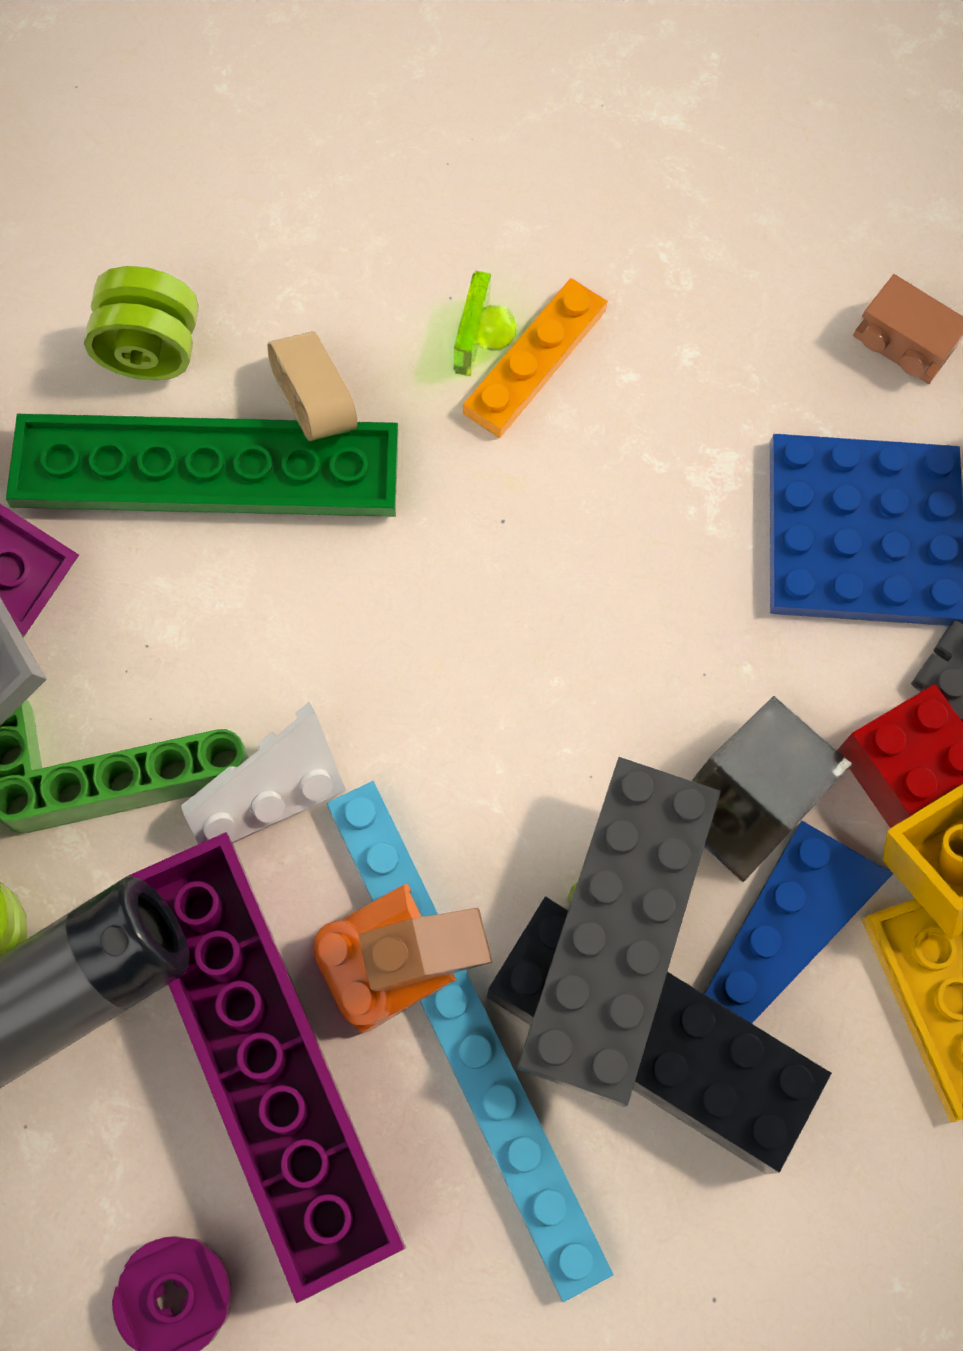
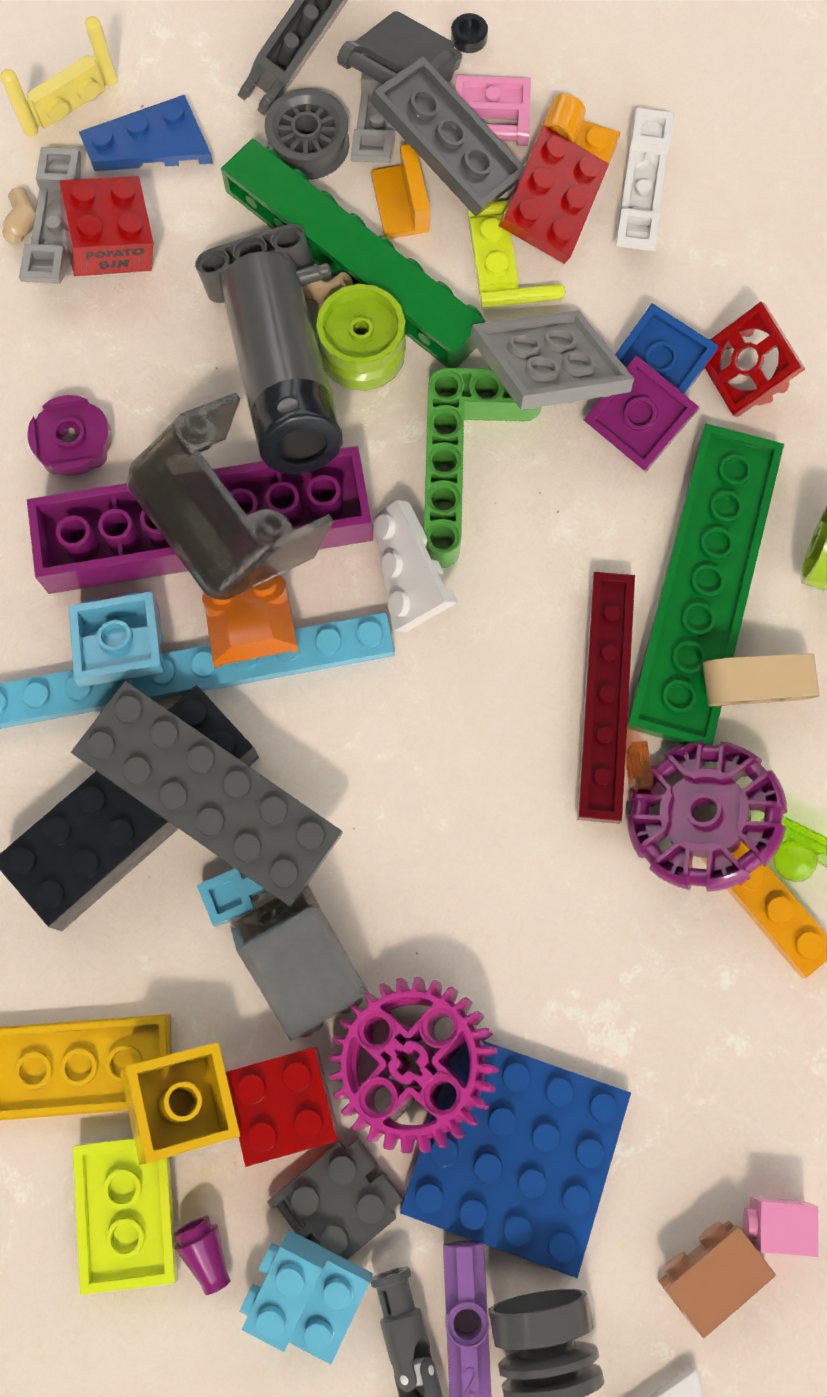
camera: 110 degrees right, 5 degrees up
(268, 1043) = (201, 517): none -> clear smoke windscreen
(364, 540) = (606, 698): none -> dark red plate
(424, 949) = (231, 635): medium nougat slope -> none
(438, 490) = (638, 766): none -> clear orange tile
(451, 1119) = (116, 638): none -> medium azure plate
(504, 416) = (721, 834): none -> magenta plate
(719, 888) = (229, 896): none -> medium azure plate
(796, 914) = (190, 960): blue wing -> none
(844, 282) = (782, 1226): none -> bright pink brick
(847, 623) = (362, 1096): none -> dark pink gear

